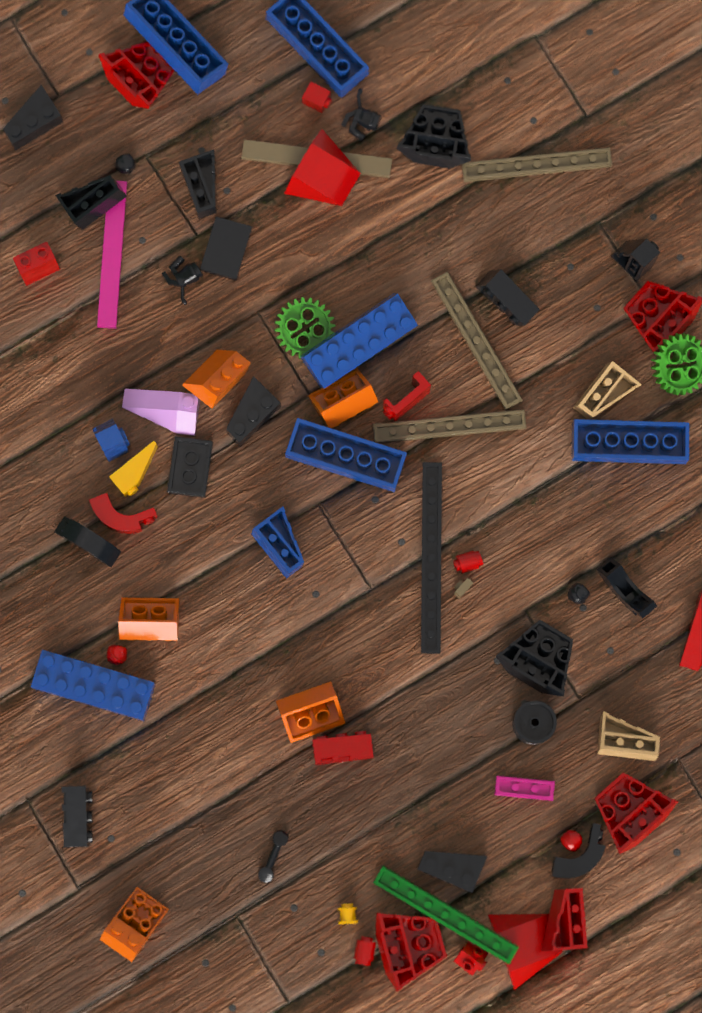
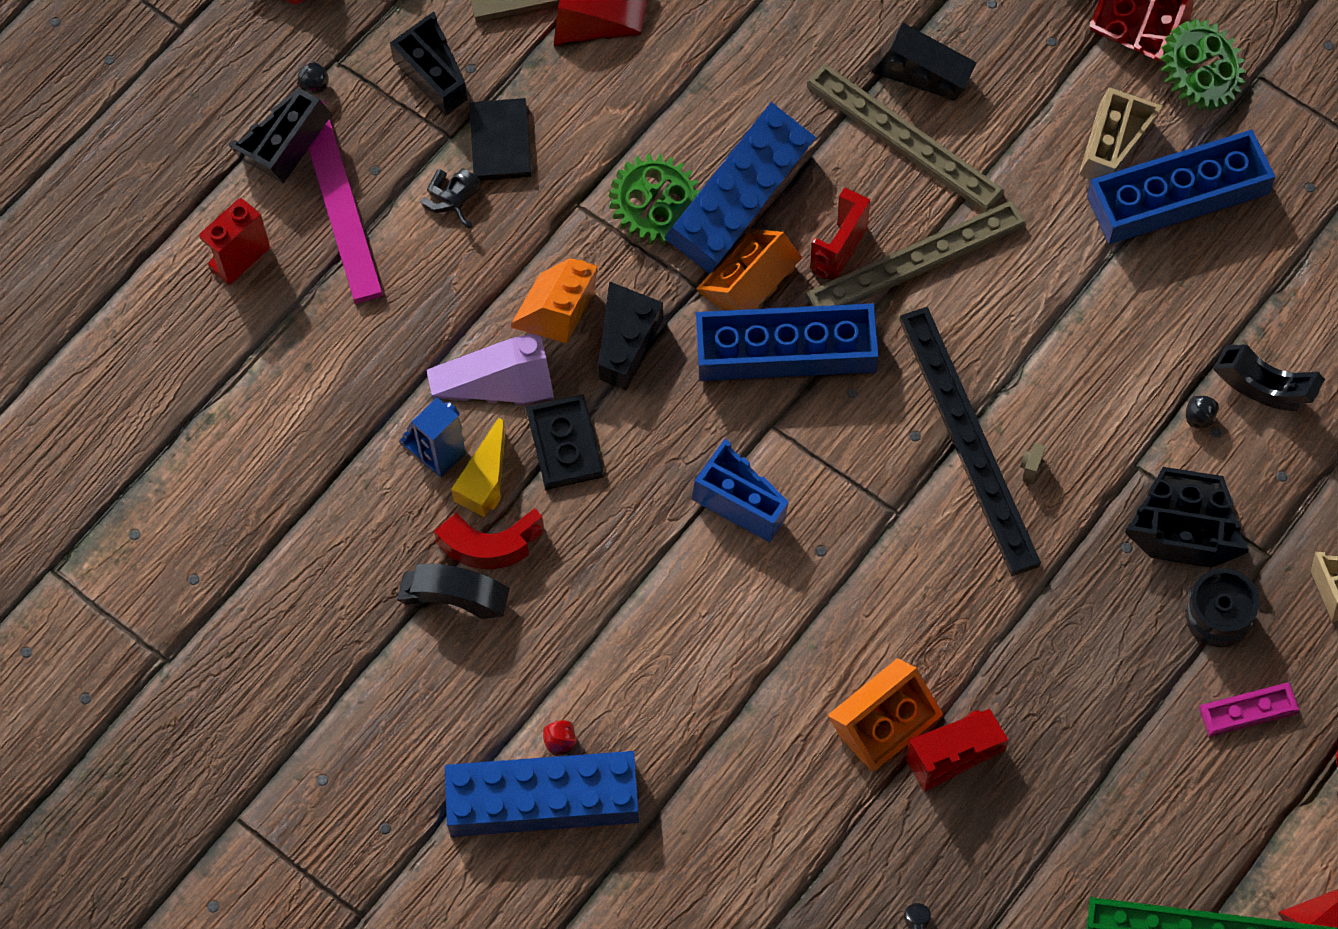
camera: 15 degrees left, 15 degrees down
(32, 119) = (159, 65): black wedge -> none
(149, 619) = (589, 670): orange slope -> none
(453, 868) = (1197, 860): black wedge -> none
(468, 561) = (1024, 425): red brick -> none

